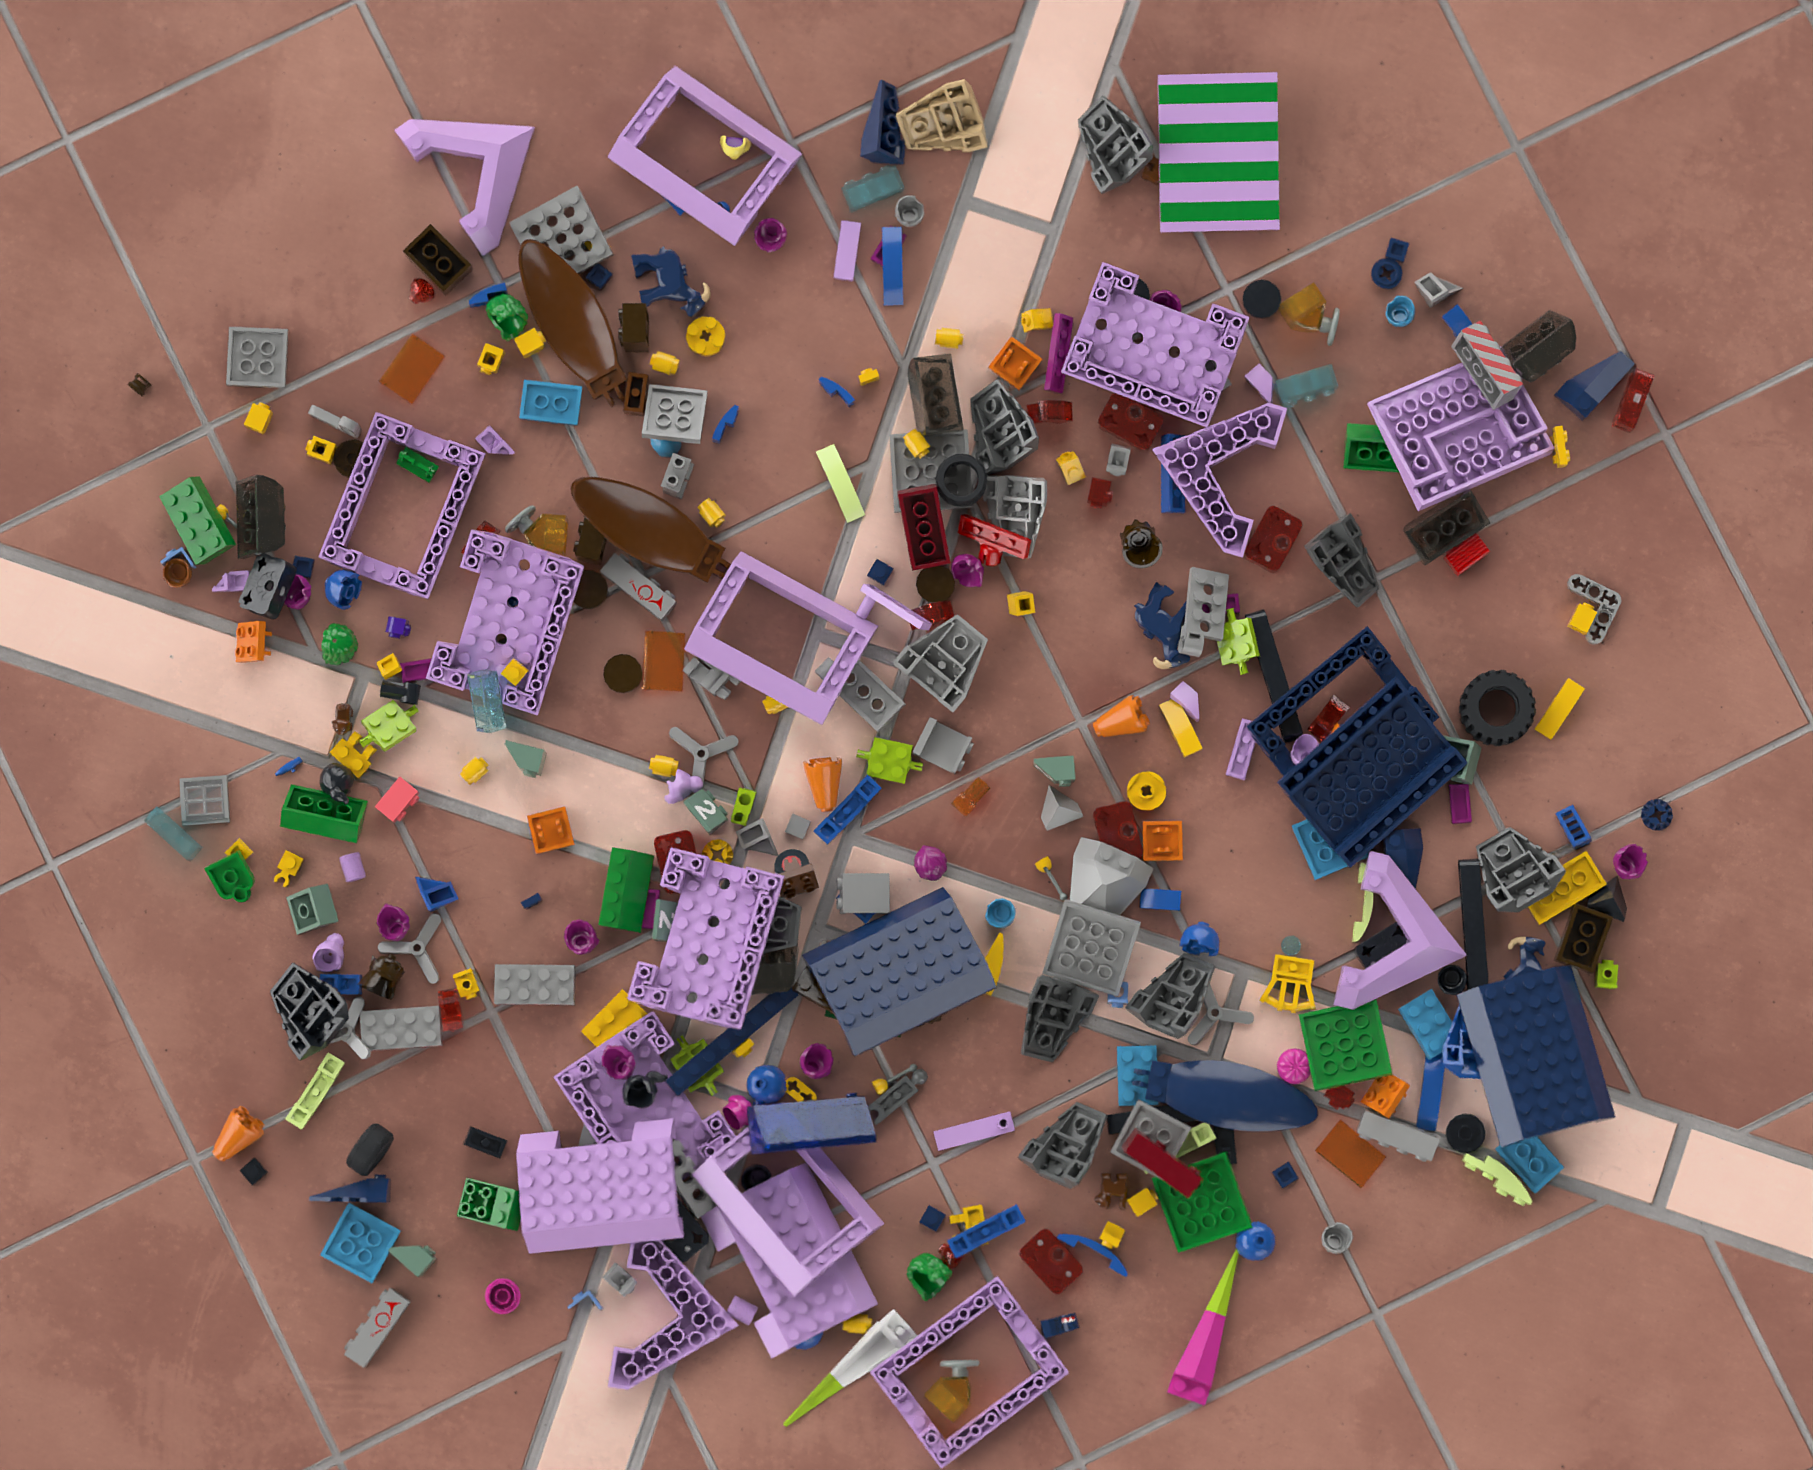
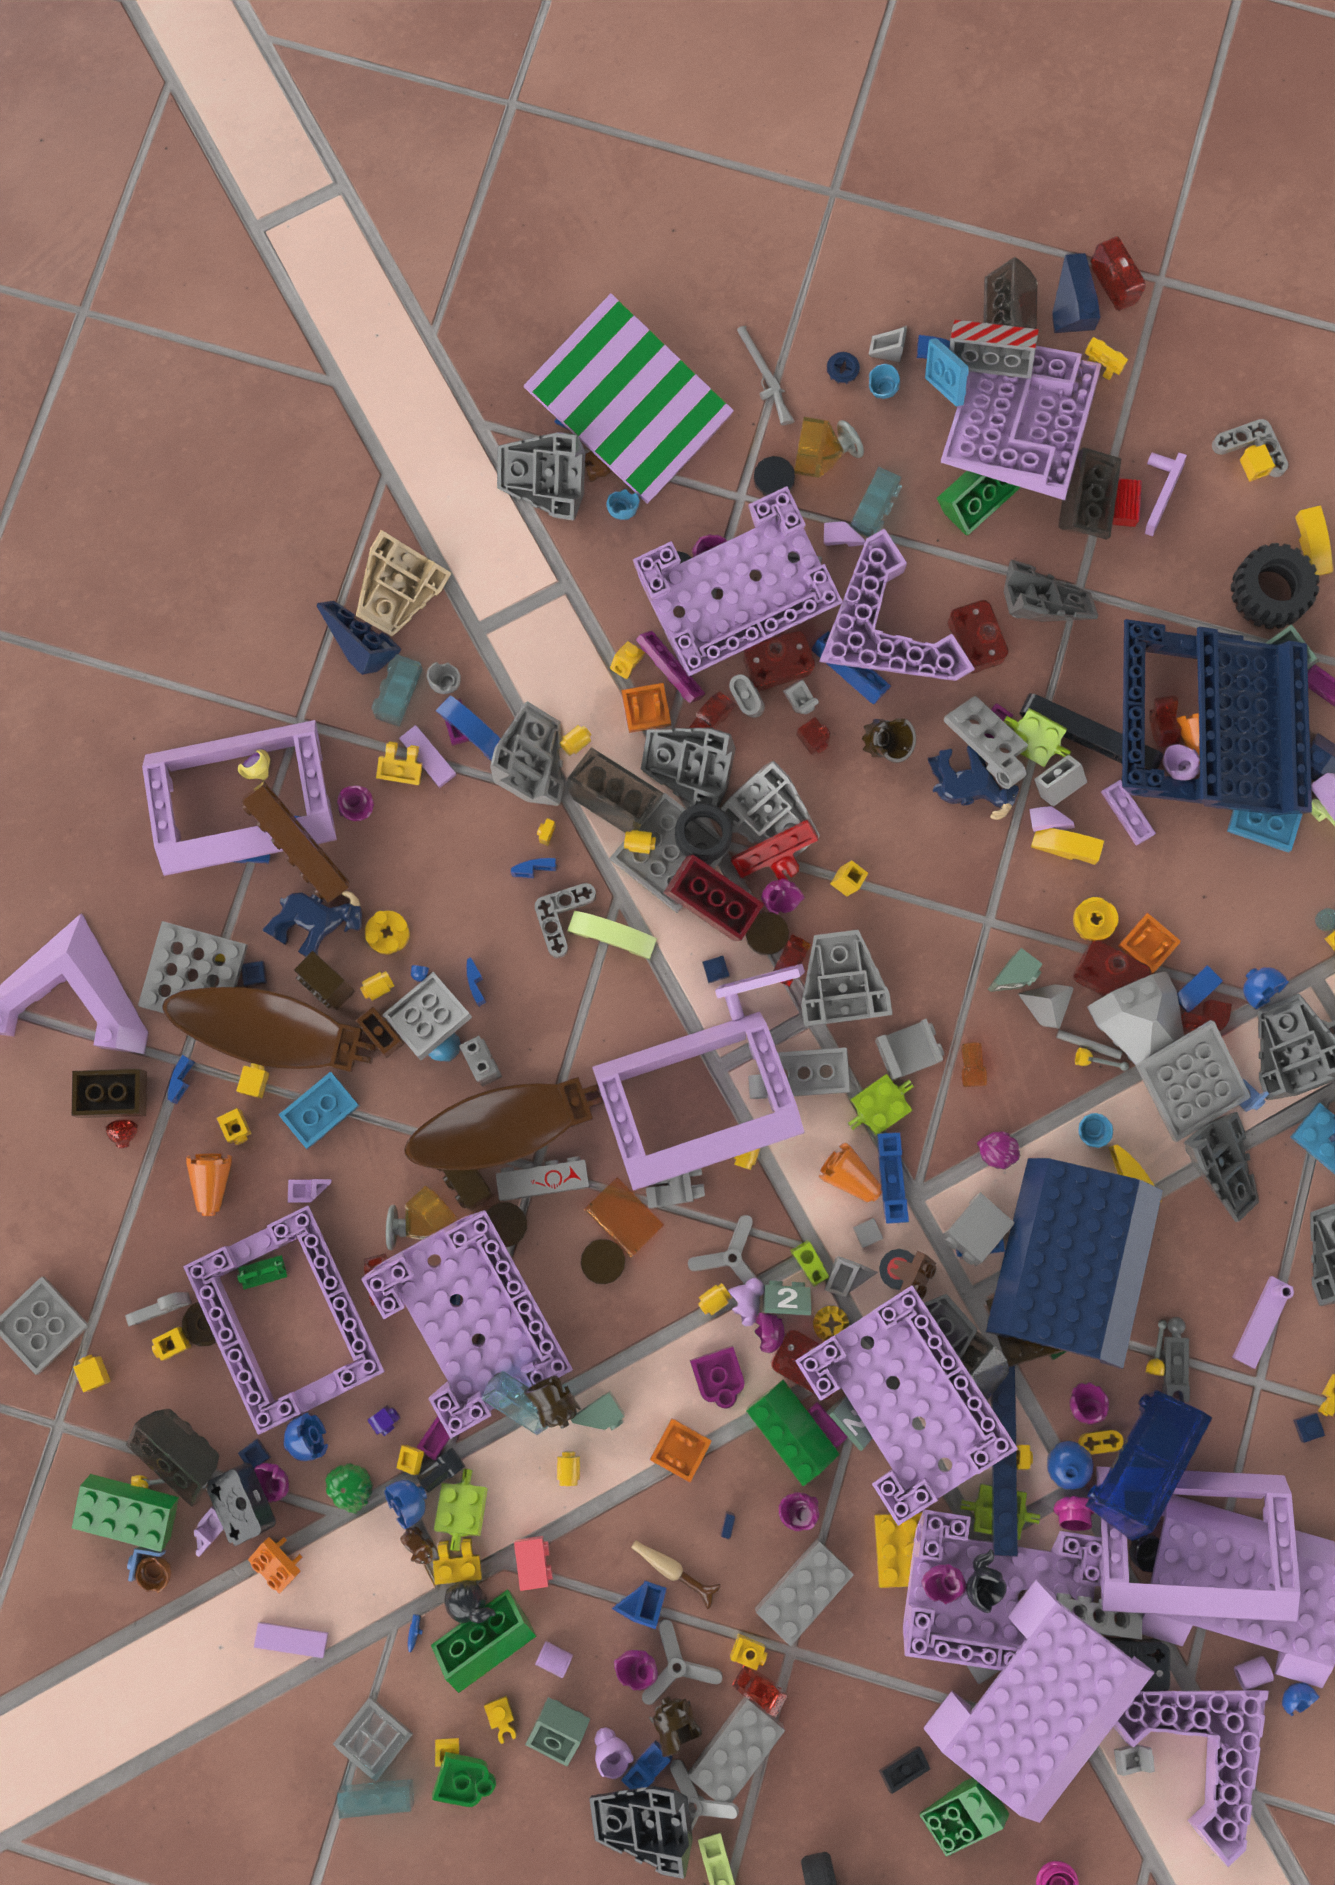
camera: 50 degrees left, 5 degrees down
(215, 695) = (291, 1640): none -> lavender tile
(362, 687) = (406, 1501): none -> blue cylinder
(411, 368) = (175, 1203): clear orange piece -> none
(442, 375) = (208, 1180): none -> orange cone
(473, 893) = (673, 1571): none -> tan piece
(505, 719) = (552, 1404): none -> dark brown hat
(507, 315) = (212, 1079): green hair -> none
(514, 672) = (517, 1354): yellow plate -> none
(580, 1296) = (1118, 1811): medium blue bracket -> none
(618, 813) = (719, 1376): none -> magenta plate
(675, 819) = (770, 1332): none -> magenta hair
(698, 382) = (419, 973): none -> blue hinge
(706, 223) = (295, 841): none -> reddish brown brick
(711, 513) = (538, 1061): yellow brick -> none
(752, 1351) = (1298, 1697): none -> blue hair
(820, 241) = (400, 770): none -> yellow plate
(824, 431) = (557, 908): none -> light grey beam
(907, 319) = (528, 757): none -> light grey wedge
(1056, 860) = (1089, 1044): none -> light grey bar
(1071, 467) = (772, 740): yellow bracket -> none
(1084, 423) = (747, 696): none -> light grey brick
(1122, 719) = (1020, 883): orange cone -> none
(1143, 216) = (622, 504): none -> dark azure hair
(1149, 927) = (1212, 1010): none -> clear red brick
(1220, 683) = (1060, 780): none -> light grey brick
(1326, 242) = (774, 387): none -> light grey piece
(1396, 250) = (831, 343): dark blue plate -> none
(1440, 348) = (946, 372): none -> dark azure plate
(1524, 567) = (1175, 468): none -> lavender piece

